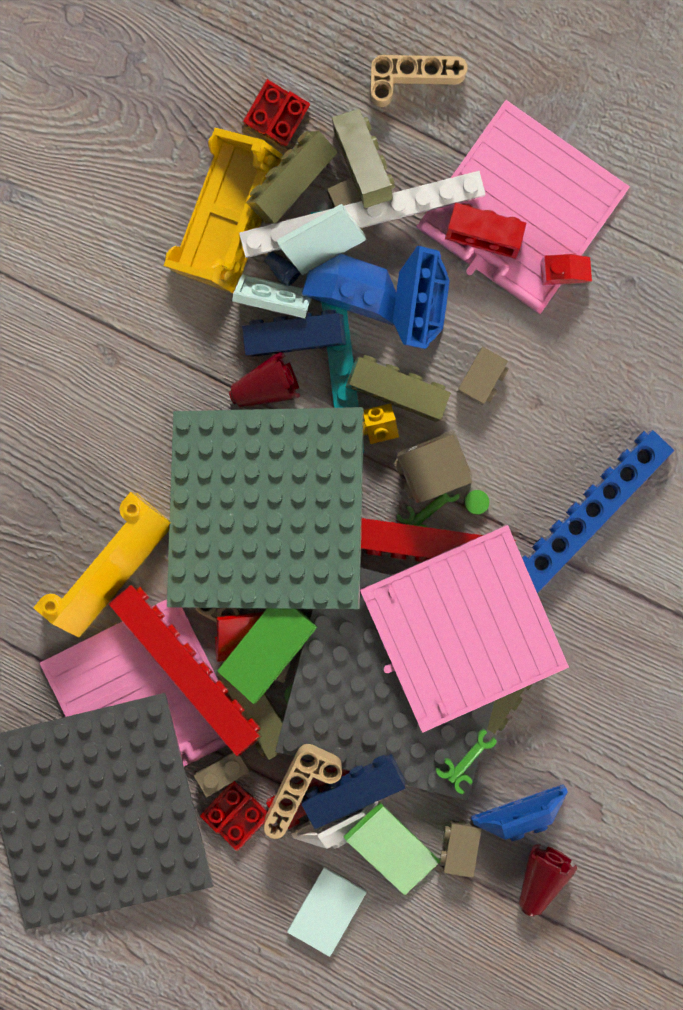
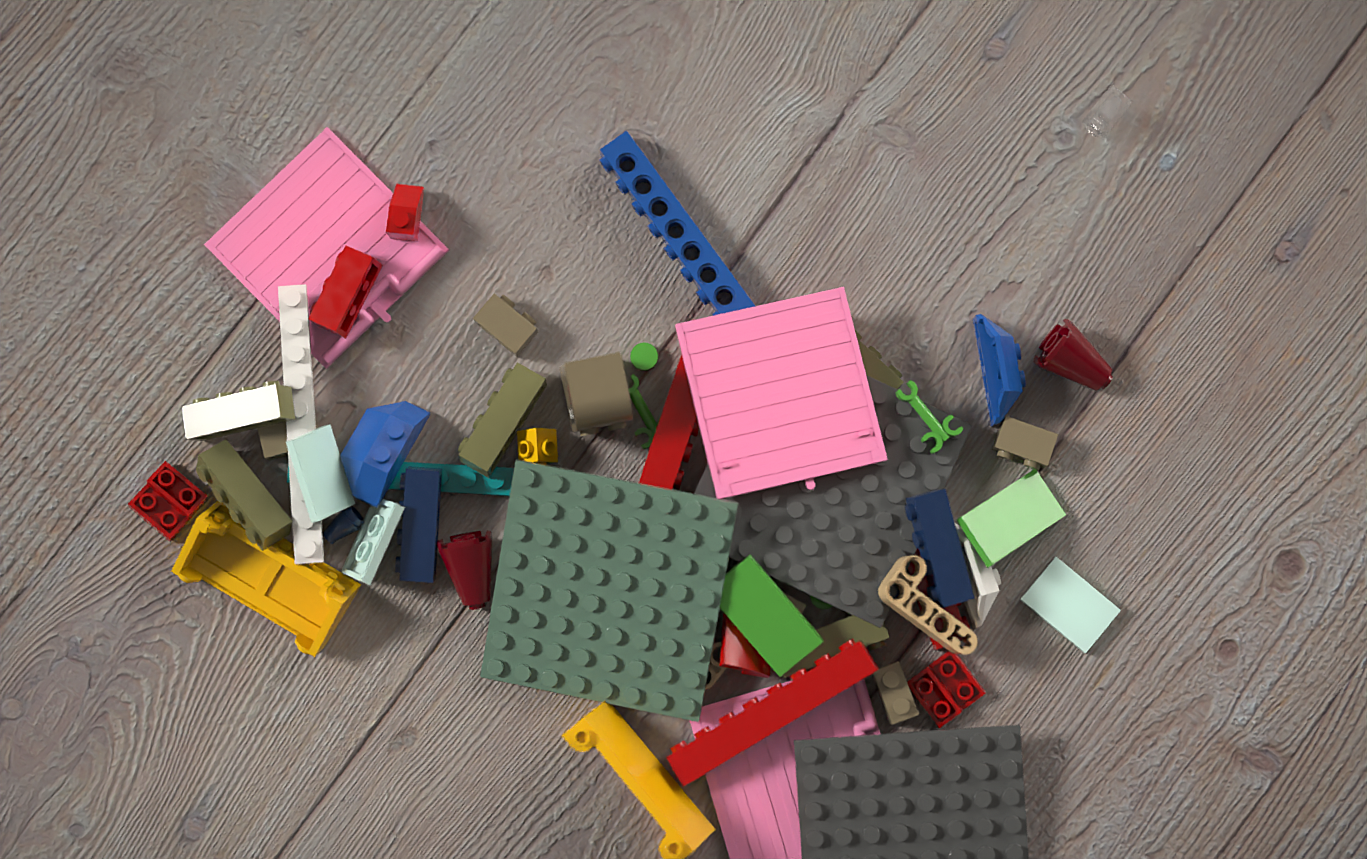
camera: 80 degrees left, 5 degrees down
(418, 76) = (158, 334): tan beam -> none
(421, 298) = (406, 376): blue wedge -> none

